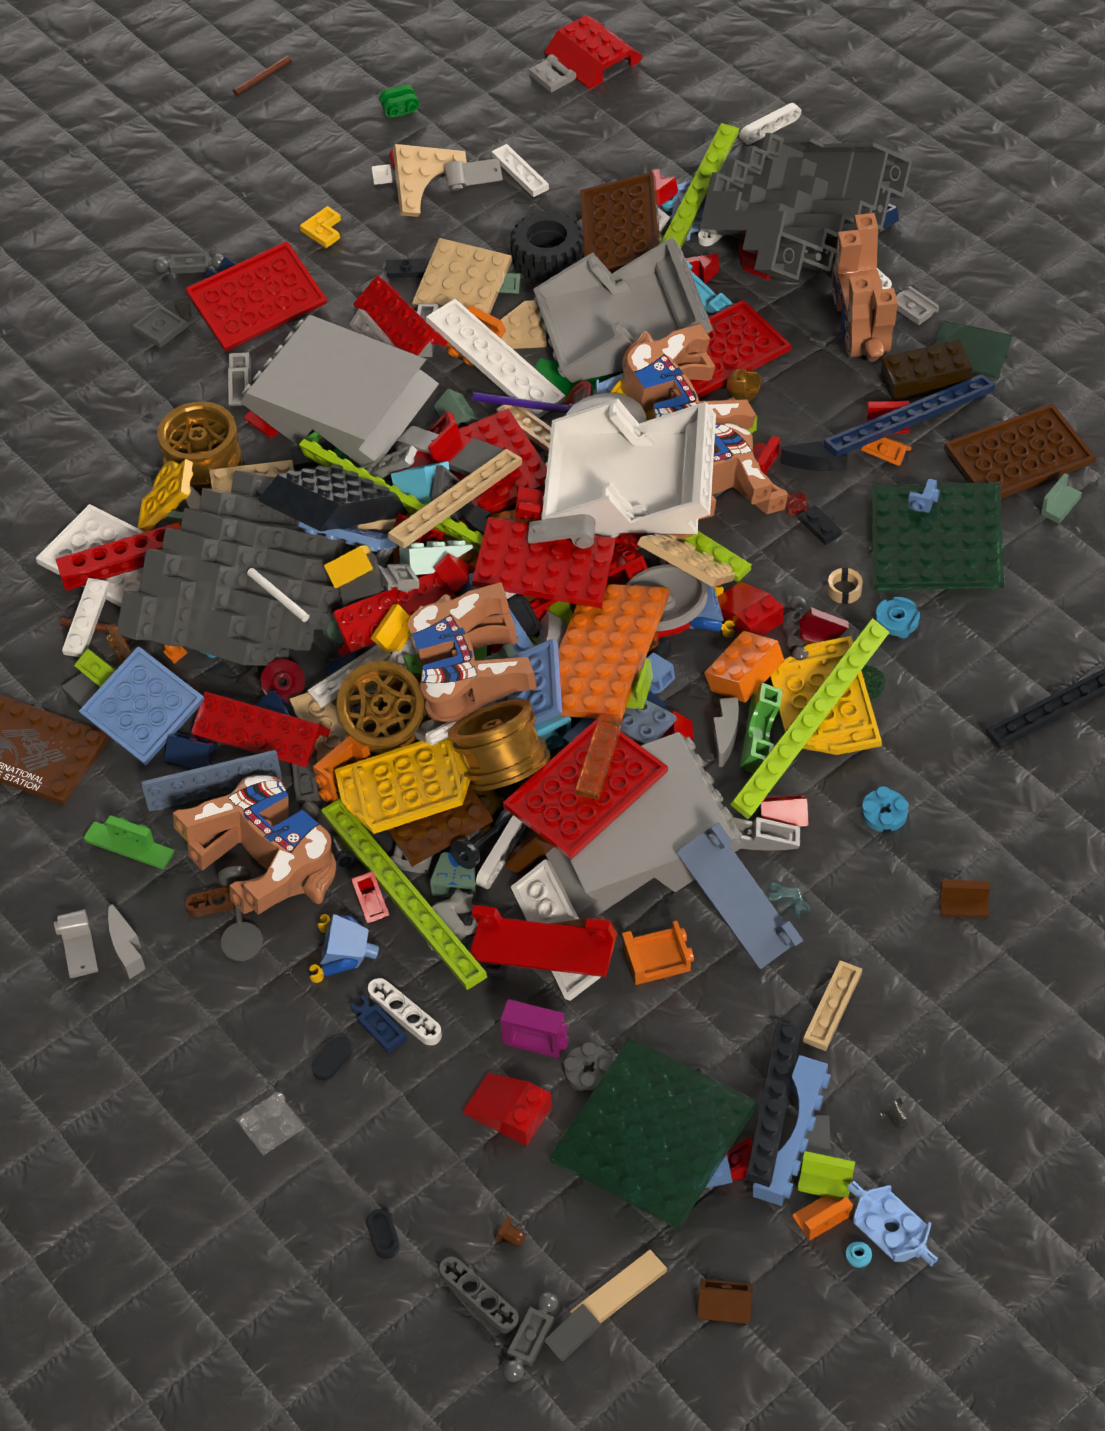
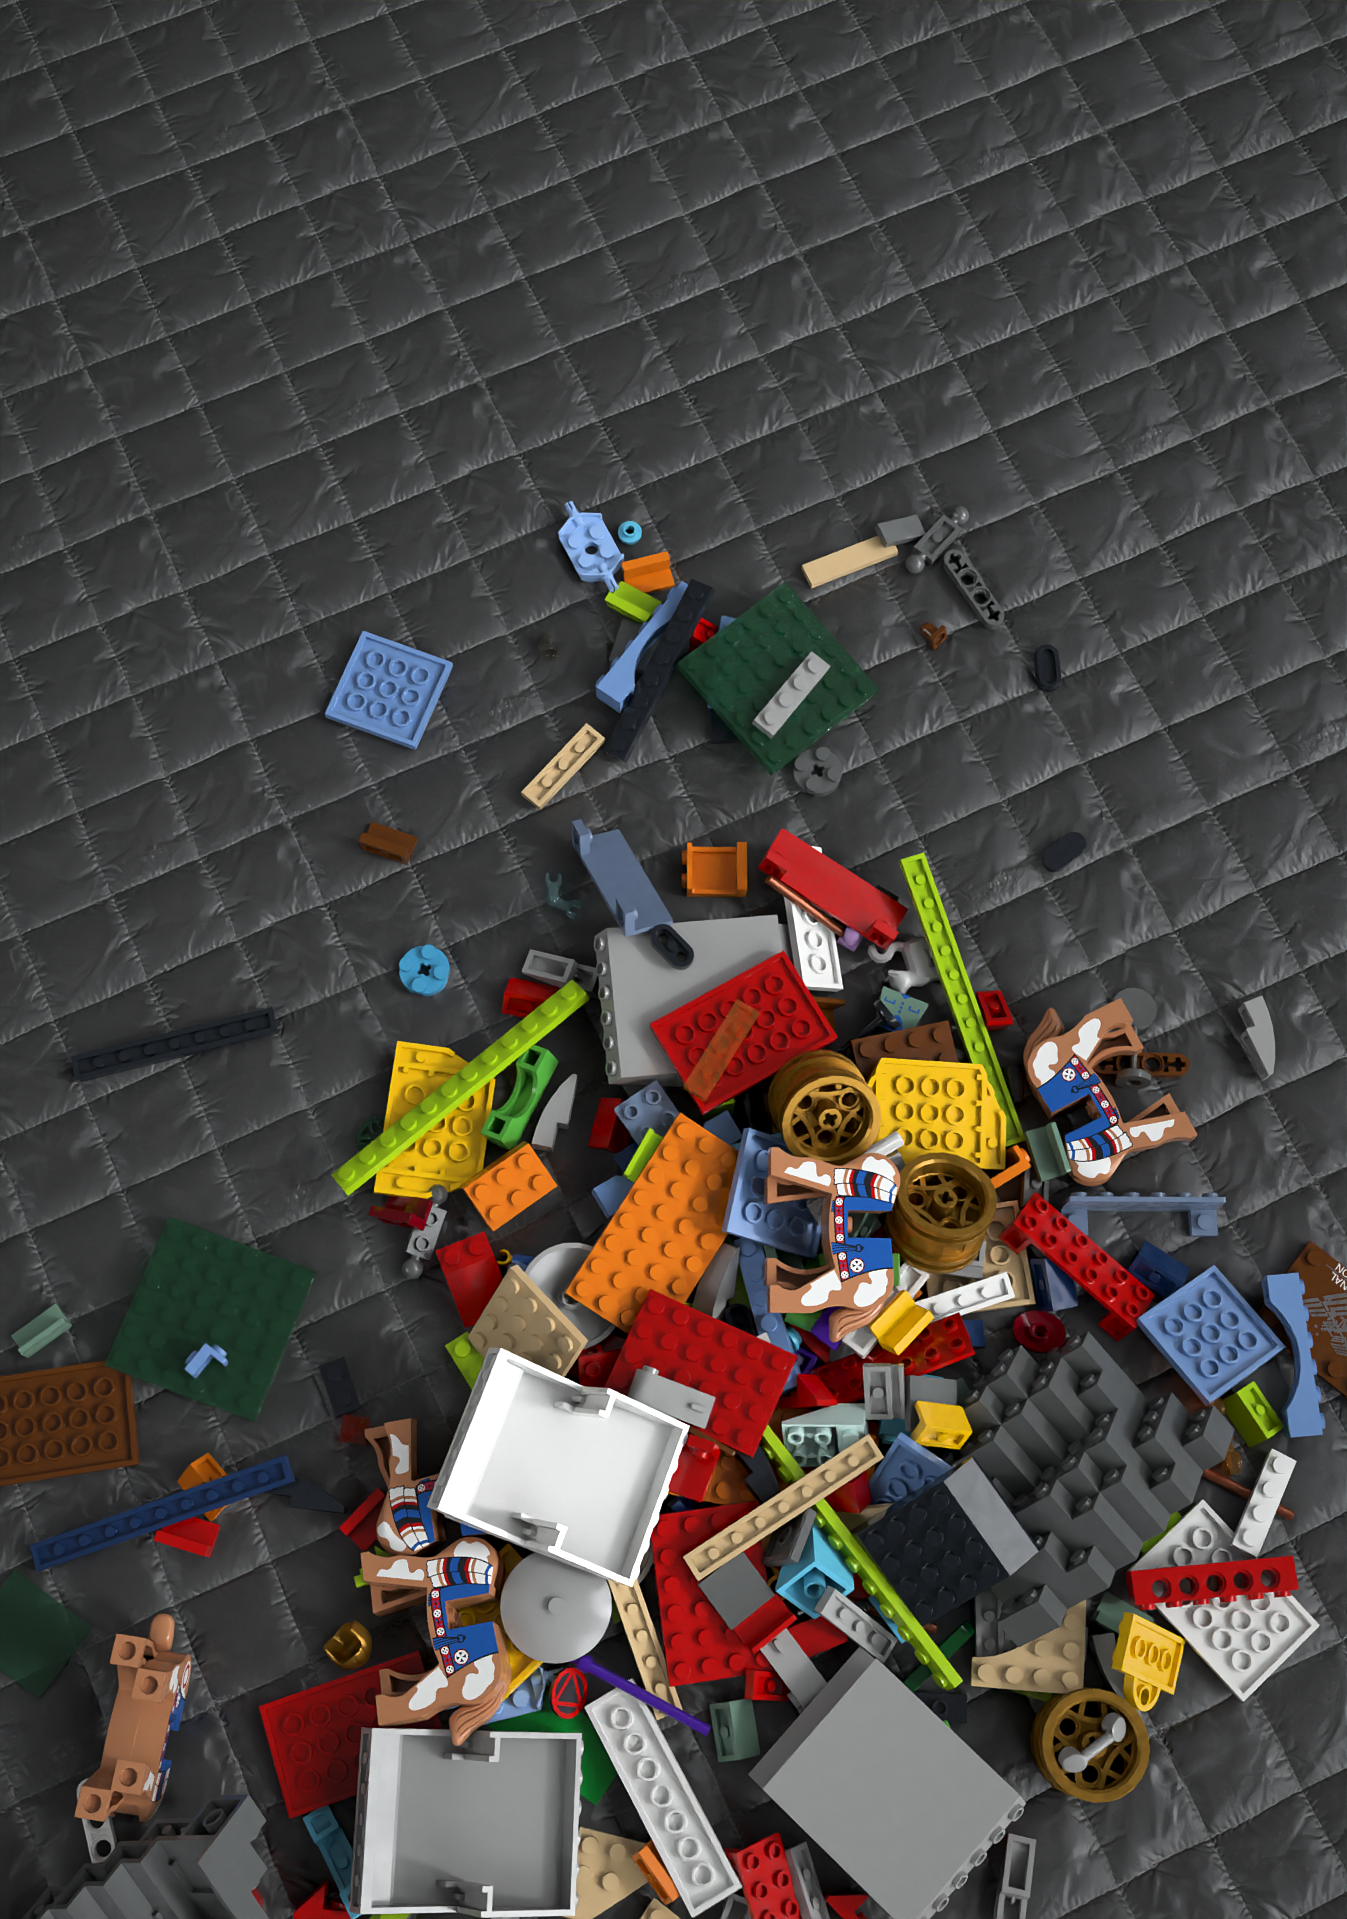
camera: 170 degrees left, 20 degrees up
(78, 943) = (1306, 1051): light grey door -> none
(82, 738) = (1301, 1411): none -> medium blue arch
(129, 840) = (1241, 1161): bright green bracket -> none
(184, 444) = (1076, 1761): none -> light grey bar
(270, 1123) = (1135, 801): clear hinge -> none
(276, 593) = (1036, 1402): white bar -> none
(302, 795) = (1047, 1152): none -> sand green panel
(343, 946) = (1031, 964): medium blue torso -> none
(379, 1025) = (1011, 870): dark blue plate -> none
(402, 1013) = (986, 879): white beam -> none
(500, 853) = (851, 1022): white beam -> none
(510, 1106) = (904, 751): red slope -> none
(534, 1028) = (862, 810): magenta window -> none
(634, 1107) = (791, 695): none -> light grey plate
(671, 833) = (673, 947): none -> black plate
(725, 1301) = (758, 527): reddish brown panel -> none
(844, 574) = (338, 1266): tan piece -> none
(898, 627) = (307, 1231): dark azure plate -> none
(915, 305) = (65, 1734): light grey plate -> none
(926, 370) = (103, 1596): dark brown brick -> none
(1029, 1030) = (389, 690): none -> medium blue plate

